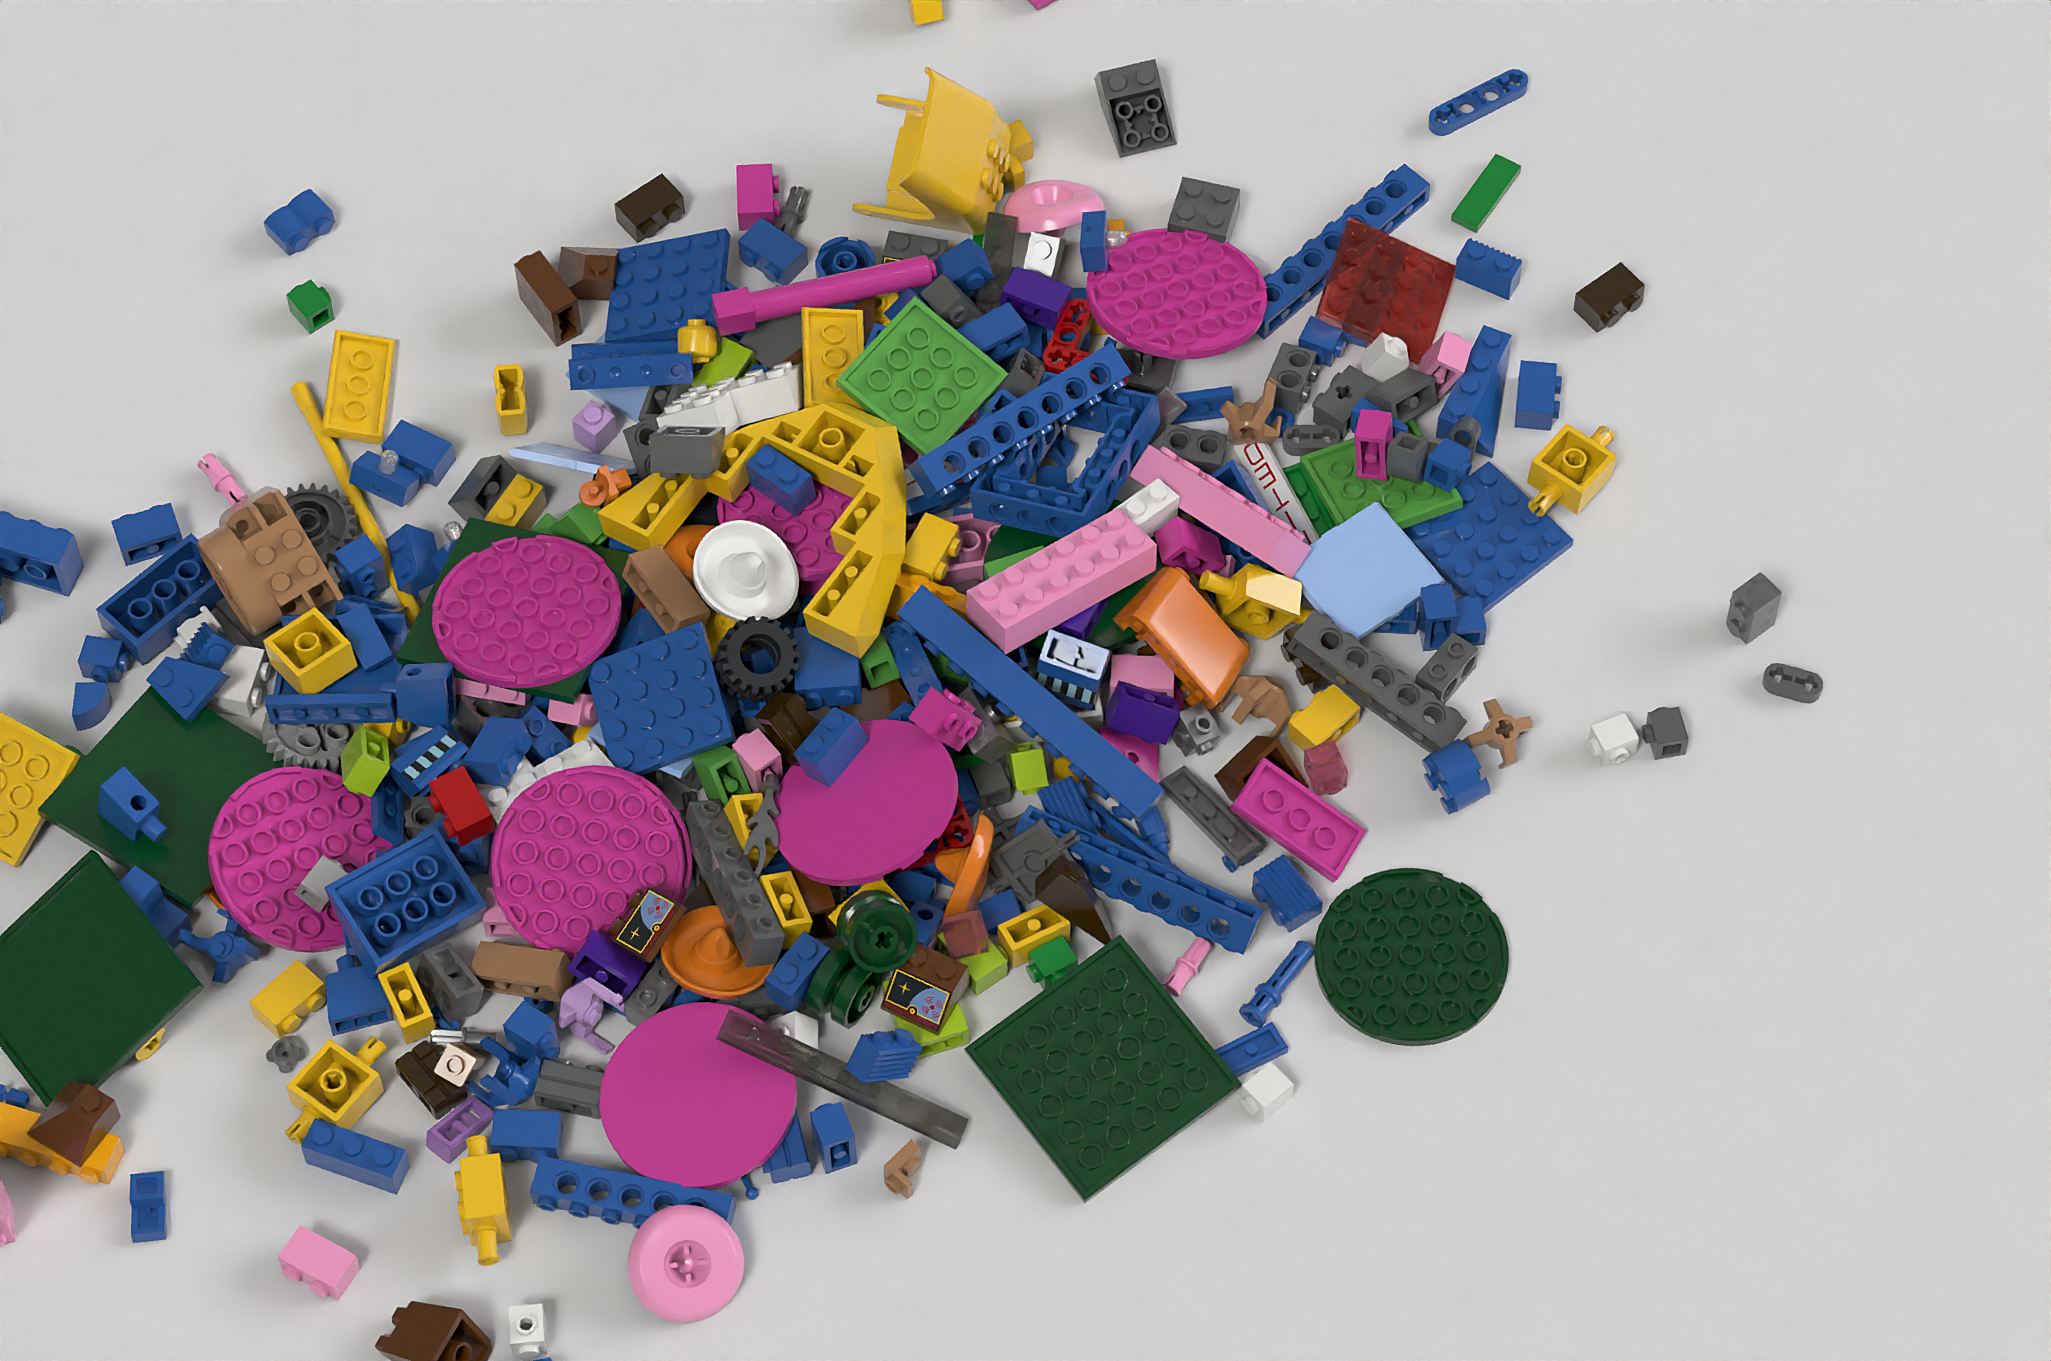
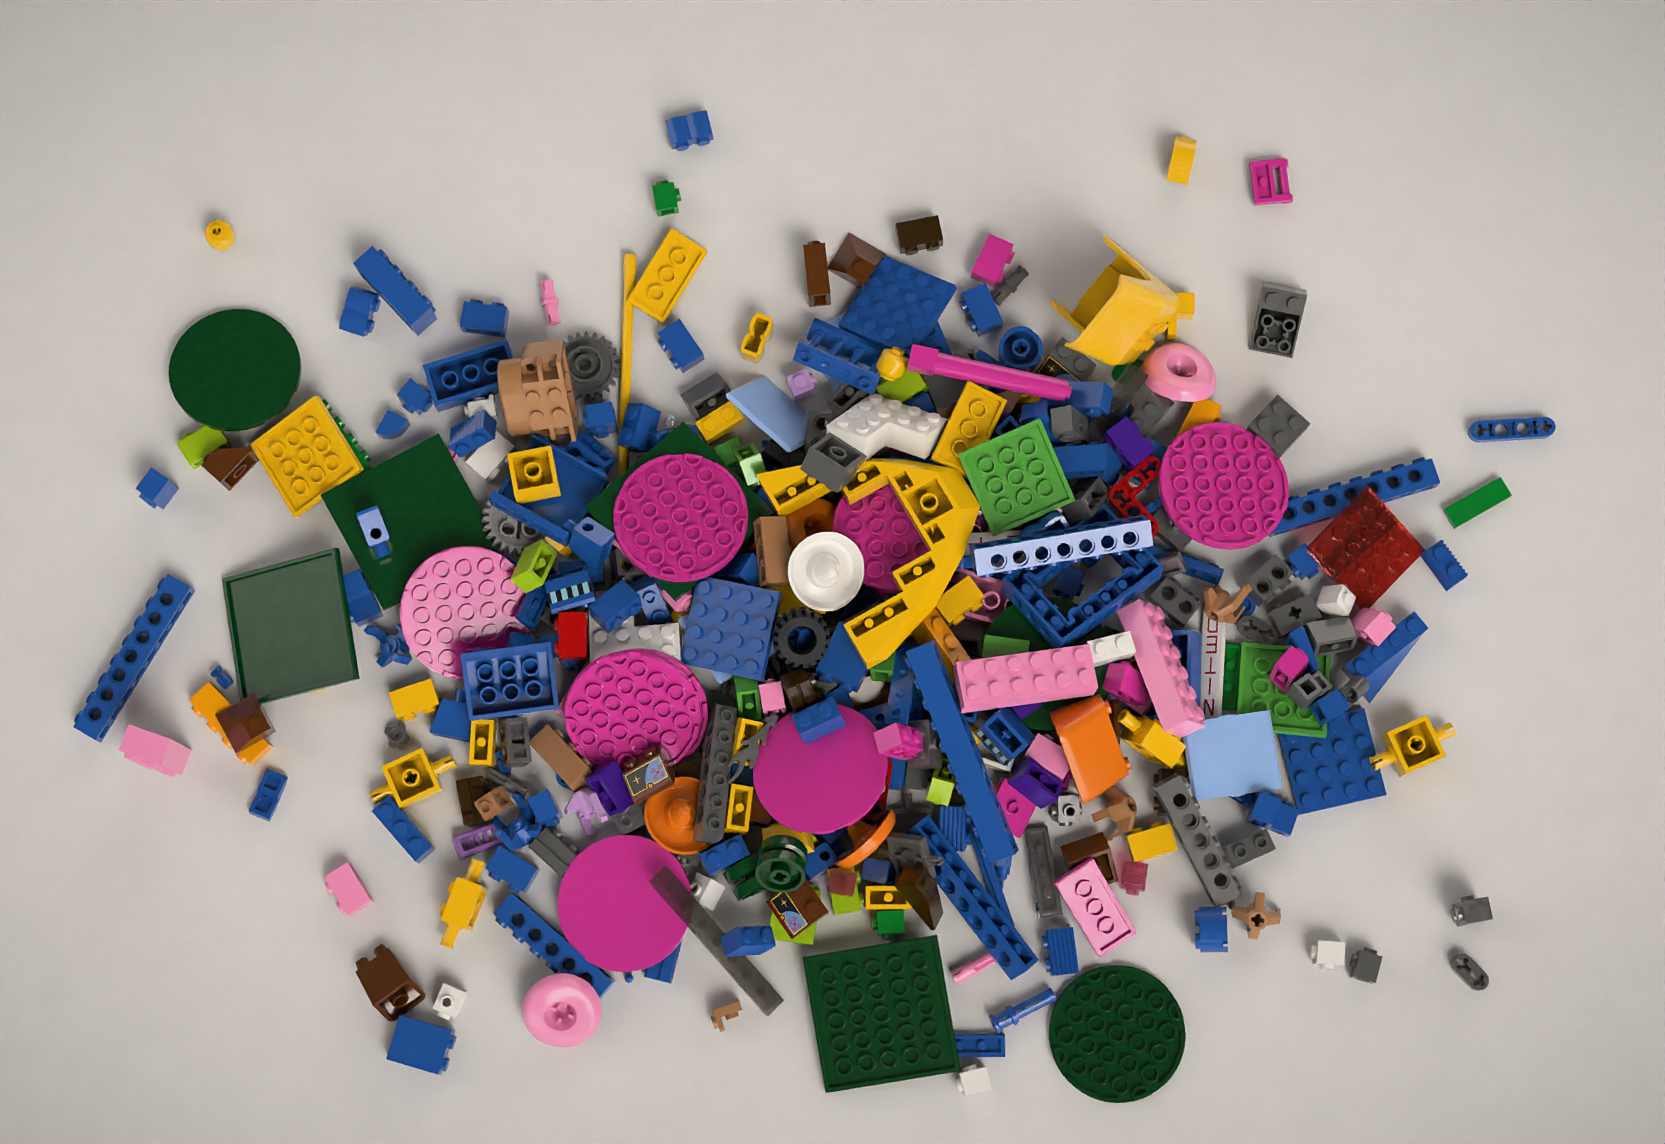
camera: 30 degrees right, 20 degrees up
(186, 685) = (450, 452): blue wing -> none
(312, 887) = (467, 638): light grey brick -> none
(365, 637) = (575, 478): blue tile -> none
(385, 477) = (650, 355): blue piece -> none
(605, 487) = (769, 458): orange hips -> none
(781, 480) = (885, 508): blue brick -> none
(833, 1137) = (692, 973): blue brick -> none
(1097, 240) = (1190, 423): blue piece -> none
(1536, 395) = (1422, 676): blue brick -> none
(1609, 297) = (1513, 627): dark brown brick -> none

